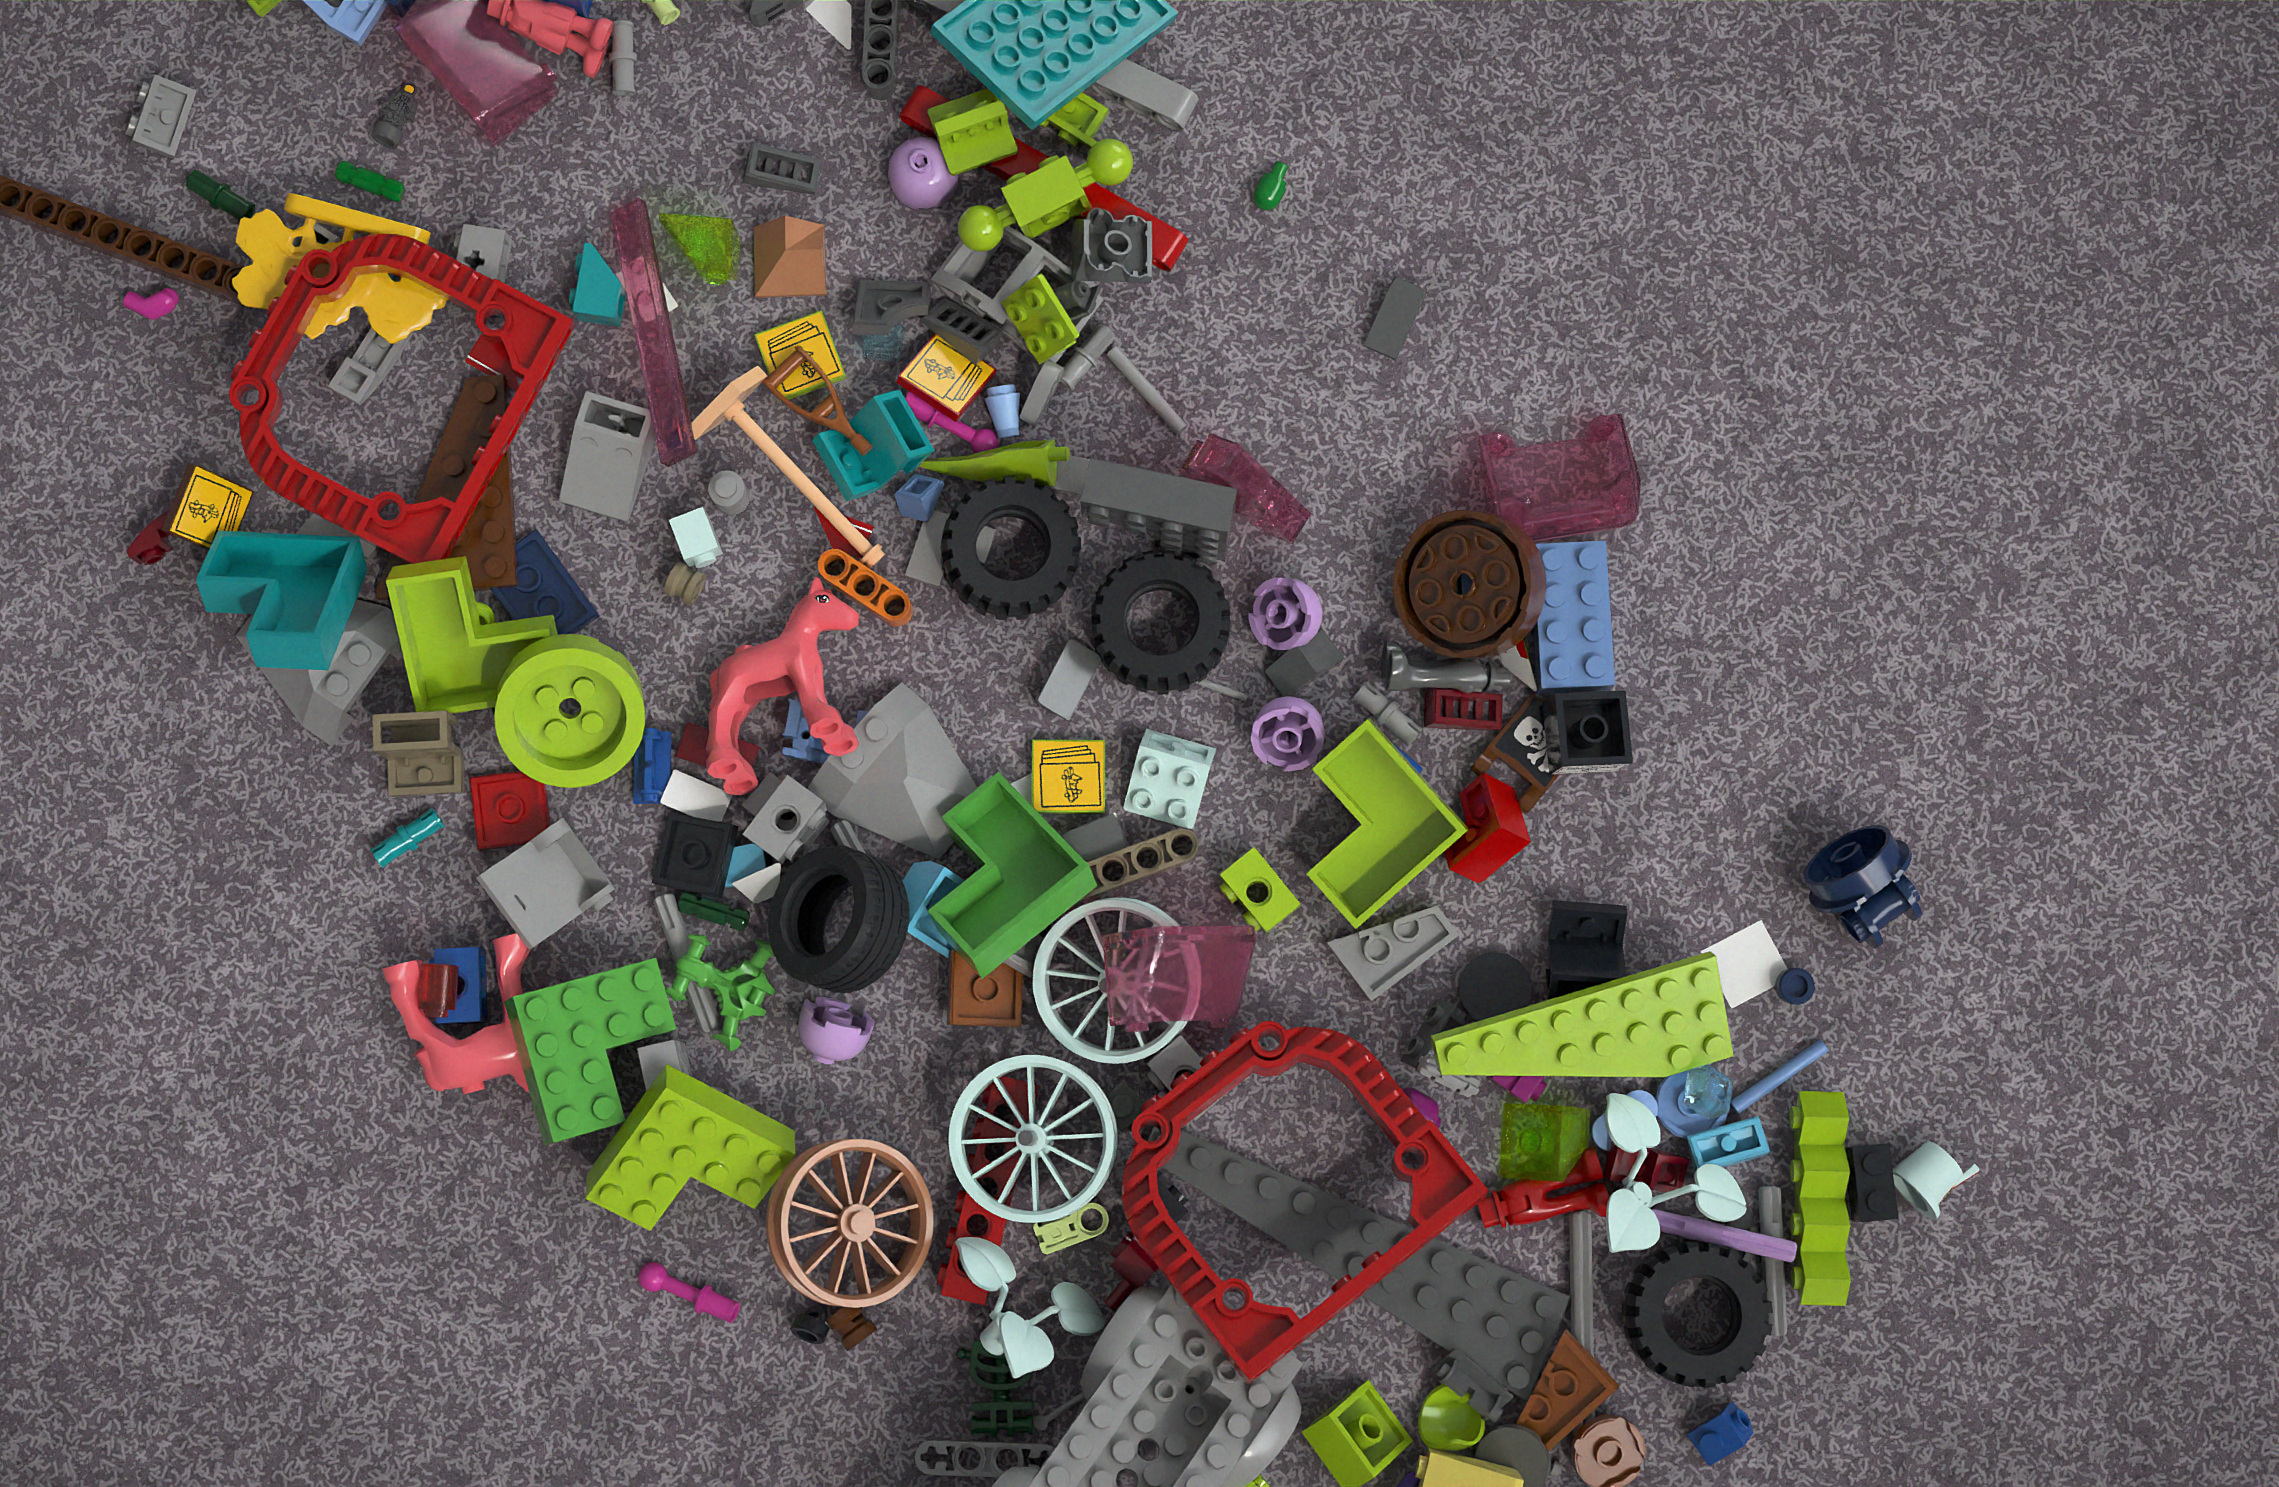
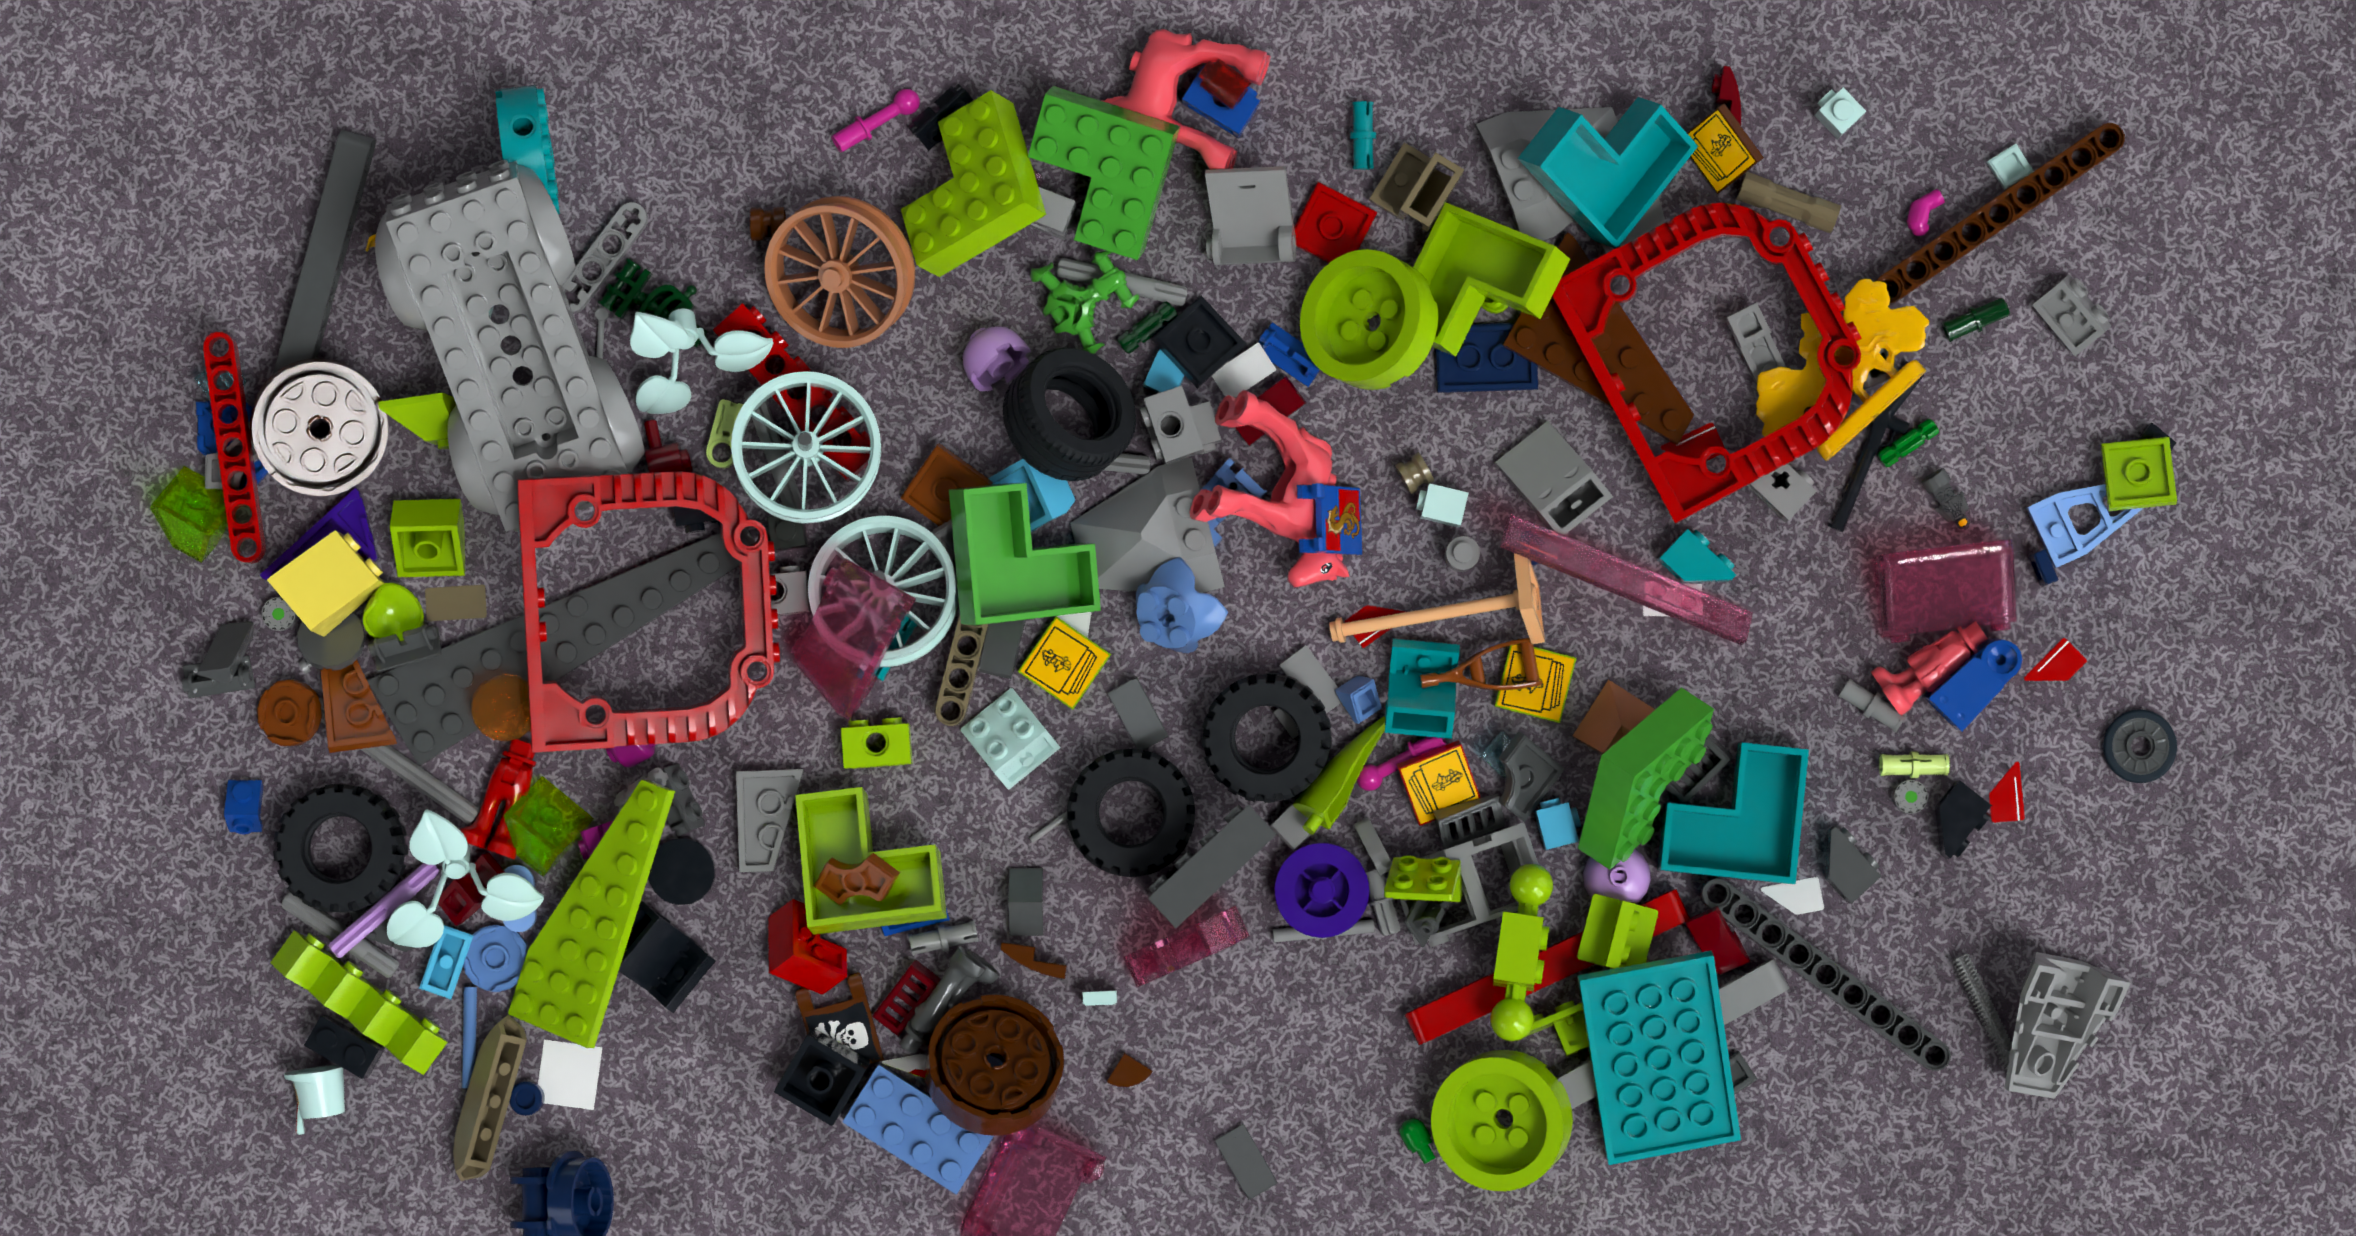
camera: 125 degrees right, 5 degrees up
(62, 257) = (2010, 166): none -> light aqua tile
(107, 431) = (1839, 112): none -> light aqua brick
(225, 448) = (1810, 210): none -> dark tan axle
(396, 210) = (1881, 422): none -> black piece
(660, 1241) = (926, 124): none -> black hinge
(706, 243) = (1668, 666): clear neon green slope -> none
(760, 884) = (1140, 375): white sticker -> none
(774, 619) = (1336, 519): none -> blue flag
(801, 77) = (1754, 837): none -> teal piece
(810, 1328) = (787, 191): black tile -> none
(818, 192) = (1637, 773): none -> bright green piece
(854, 574) = (1328, 596): orange beam -> none
(912, 252) = (1557, 823): none -> medium azure brick
(916, 51) = (1714, 935): none -> dark red slope
(933, 717) = (1173, 611): none -> medium blue brick
(1004, 410) = (1382, 809): light blue cone -> none
(1048, 1186) = (790, 494): none -> light grey axle
(1111, 248) = (1445, 975): dark grey slope -> none
(1112, 410) = (1321, 890): none -> dark purple wheel
(1238, 110) = (1475, 1141): none -> lime brick
(1285, 613) = (1071, 911): lavender cylinder -> none
(1288, 733) = (979, 850): lavender cylinder -> none
(1342, 540) = (1099, 997): none -> light aqua tile
(1351, 629) = (1025, 956): none -> reddish brown slope
(1383, 806) = (869, 878): none -> dark orange tile
(1390, 472) = (1129, 1072): none -> reddish brown tile
(1398, 1370) = (455, 602): none -> dark tan sticker
(1464, 1254) = (502, 707): none -> clear orange tile
(1708, 1092) = (494, 974): clear light blue slope -> none
(1821, 1018) = (488, 1099): none -> dark tan brick

